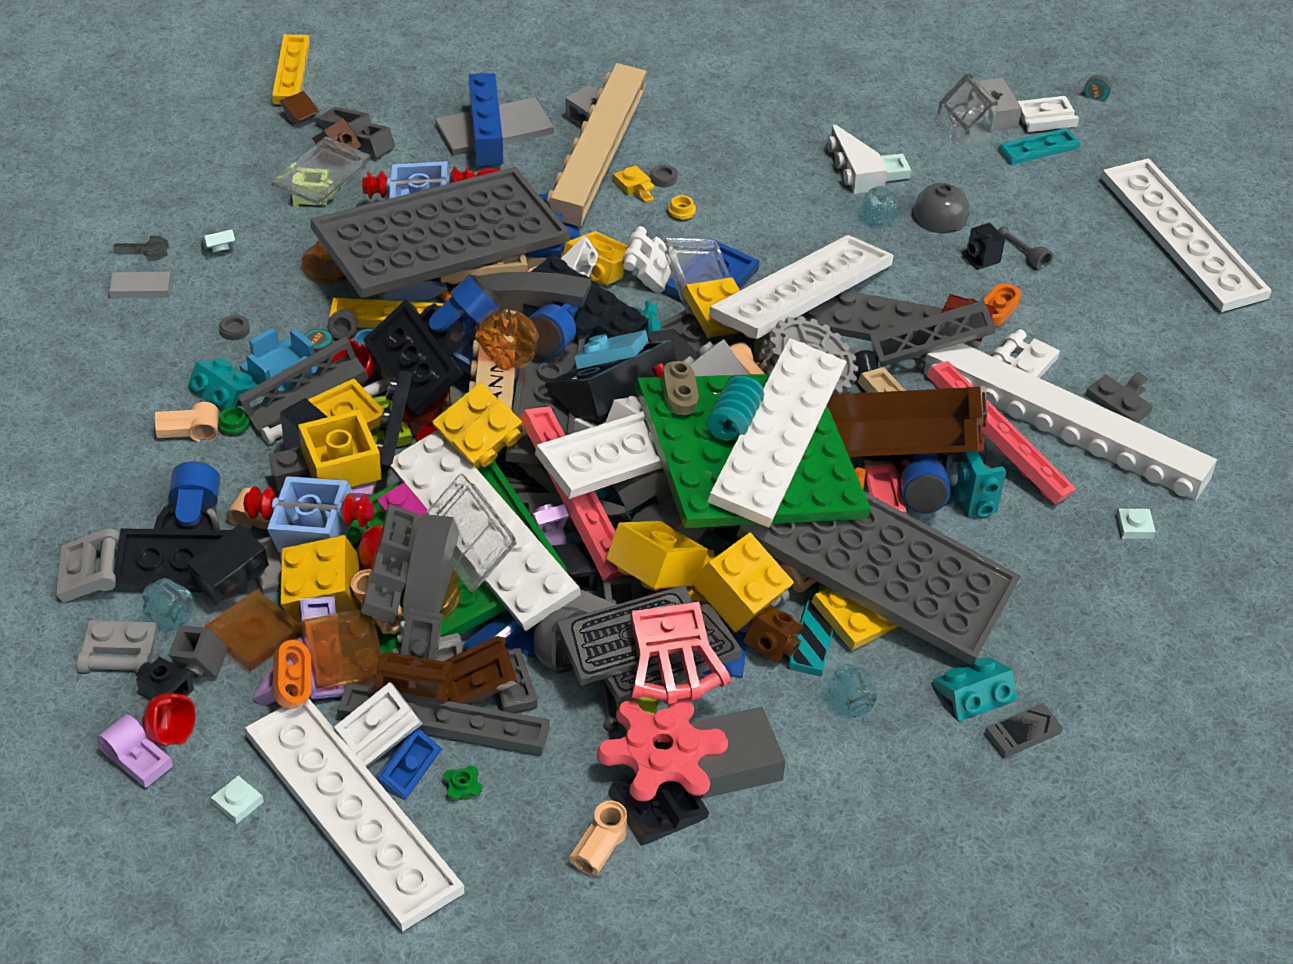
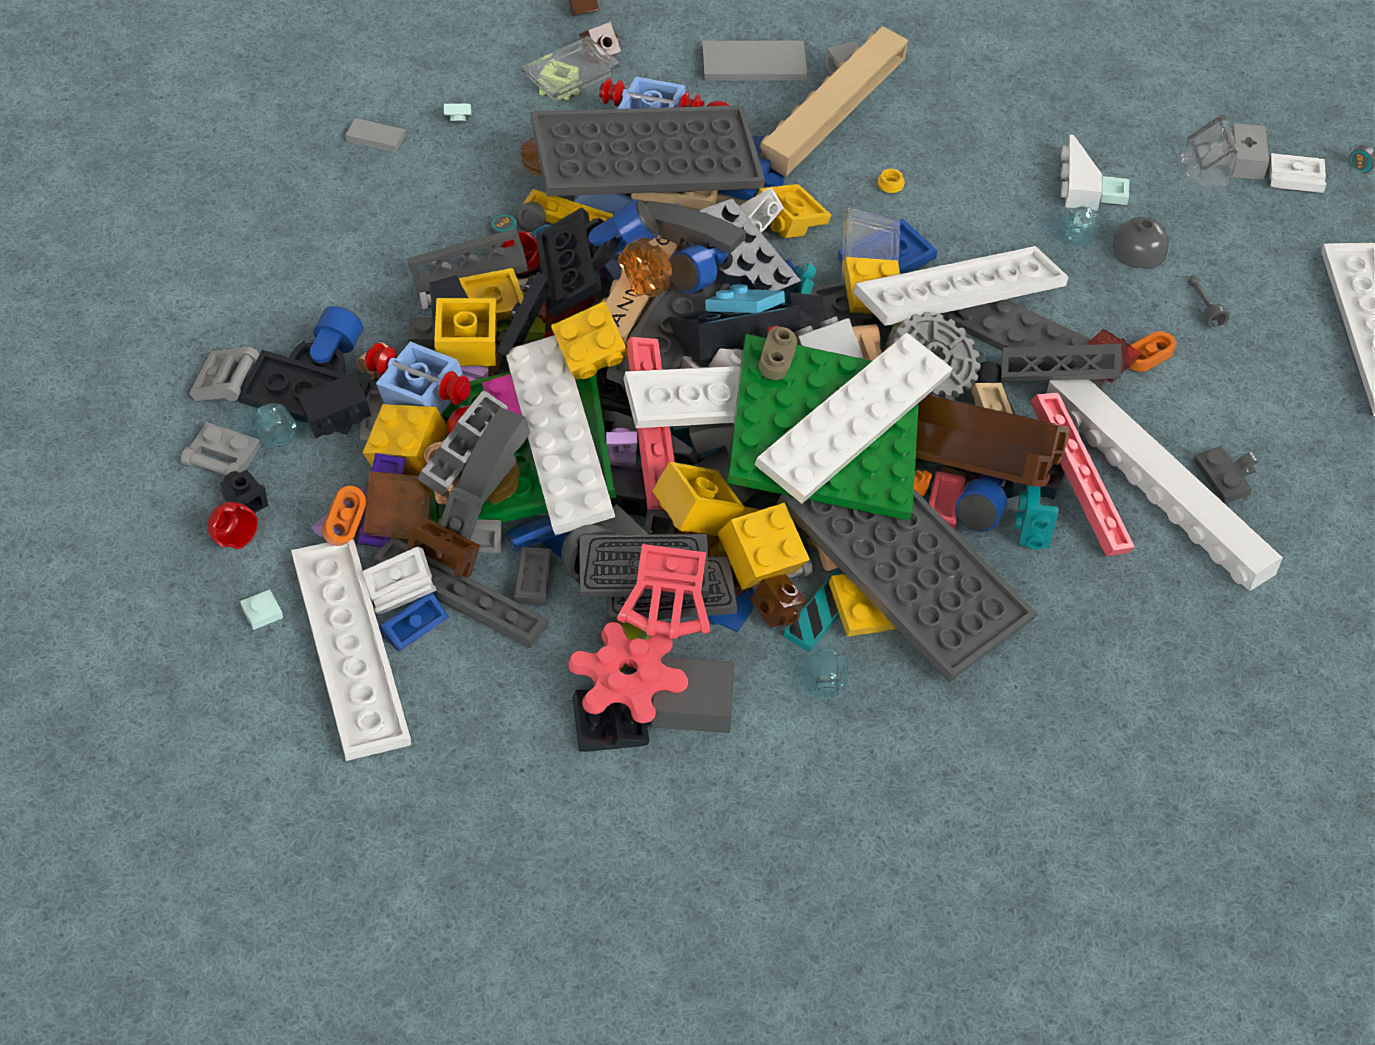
camera: 20 degrees right, 5 degrees up
(133, 751) = (194, 543): lavender plate -> none
(147, 249) = (397, 104): clear smoke bar -> none
(198, 423) = (367, 273): light nougat piece -> none
(198, 650) = (279, 474): dark grey brick -> none
(219, 382) = (402, 240): teal bracket -> none
(233, 421) = (400, 279): green plate -> none
(234, 327) = (438, 194): dark grey tile -> none
(254, 629) = (334, 467): clear orange plate -> none
(271, 357) = (457, 229): dark azure panel -> none
(373, 137) = (634, 45): dark grey slope -> none
(462, 790) = (453, 658): green plate -> none
(481, 671) = (504, 560): reddish brown plate -> none
(483, 535) = (549, 434): clear piece -> none
(485, 119) = (742, 52): blue brick -> none
(600, 839) = (542, 735): light nougat piece -> none
(634, 181) = (858, 144): yellow plate -> none
(652, 266) = (831, 230): white plate -> none
(663, 176) = (889, 146): dark grey tile -> none
(735, 407) = (818, 385): teal piece -> none
(977, 687) = (944, 703): teal bracket -> none
(984, 246) = (1162, 291): black brick -> none
(1023, 730) = (969, 754): dark grey tile -> none
(1033, 357) = (1159, 411): white plate -> none
(1039, 146) = (1274, 204): teal tile -> none
(1136, 524) = (1177, 596): light aqua plate -> none

